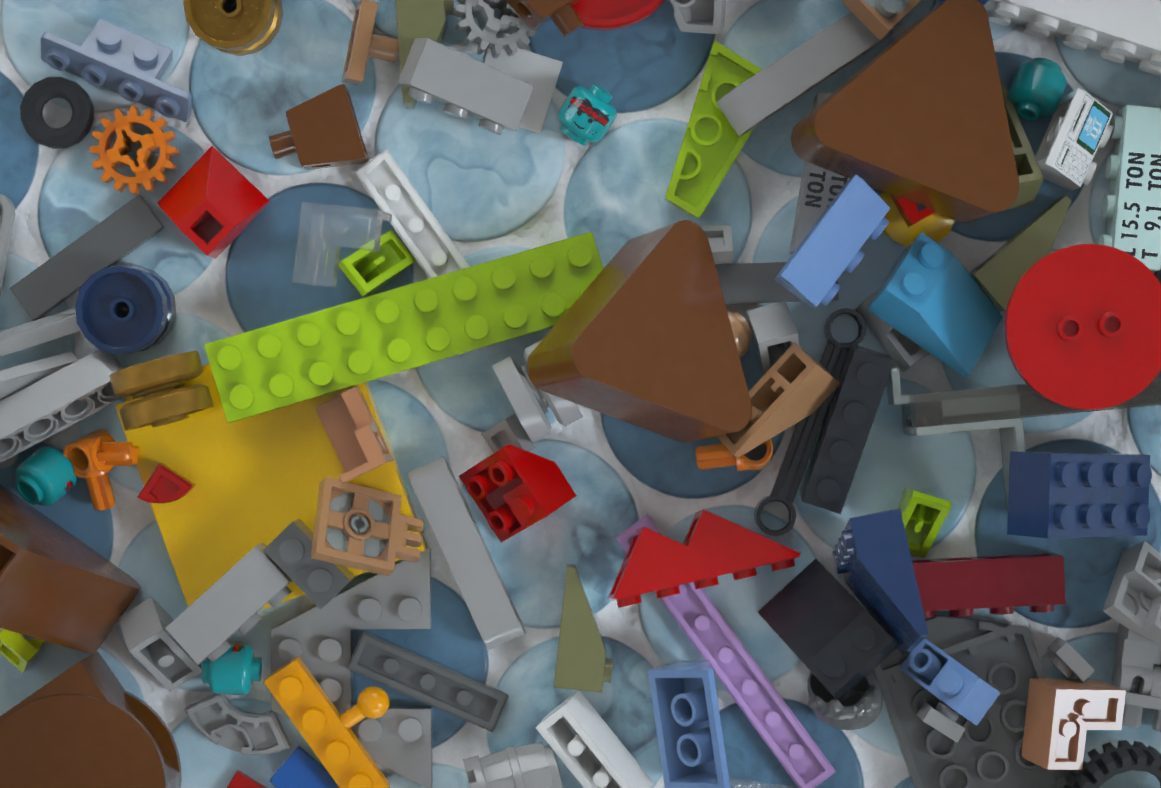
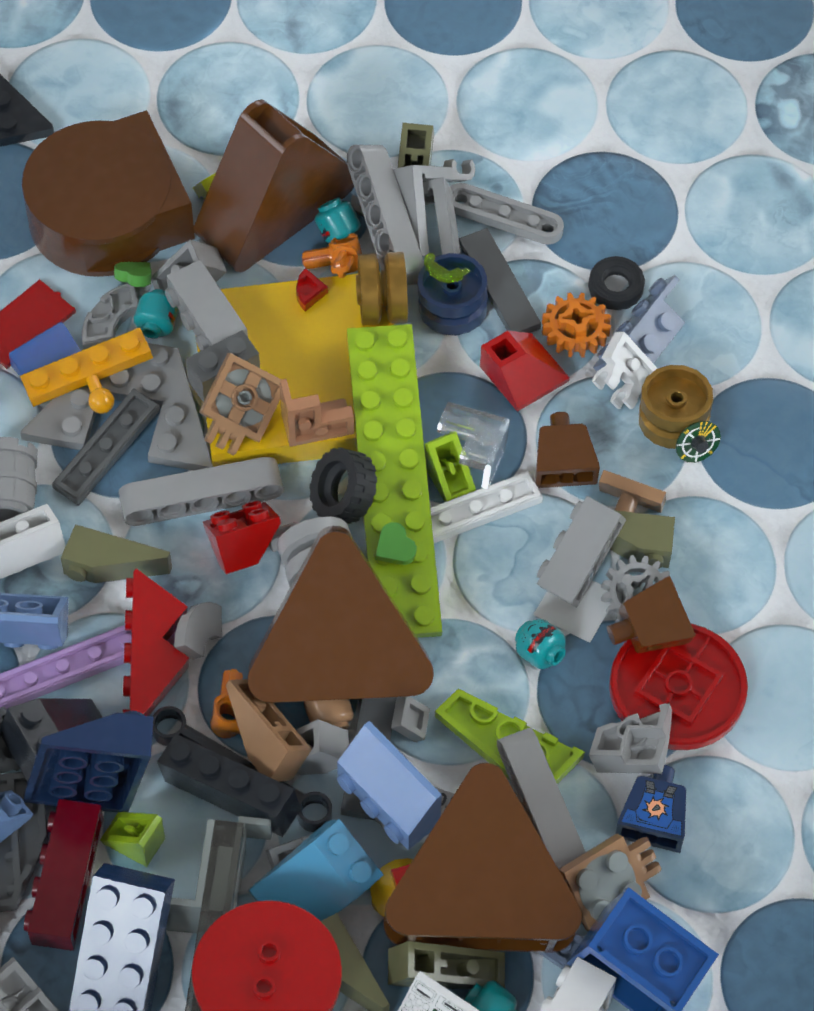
camera: 105 degrees right, 30 degrees down
(112, 326) = (442, 274): none -> clear neon green piece
(173, 711) = (134, 273): none -> bright green tile
(189, 73) = (626, 363): none -> white plate
(429, 362) = (359, 490): none -> black tyre
(508, 304) = (395, 546): none -> bright green tile
(652, 508) = (196, 627): none -> light grey tile

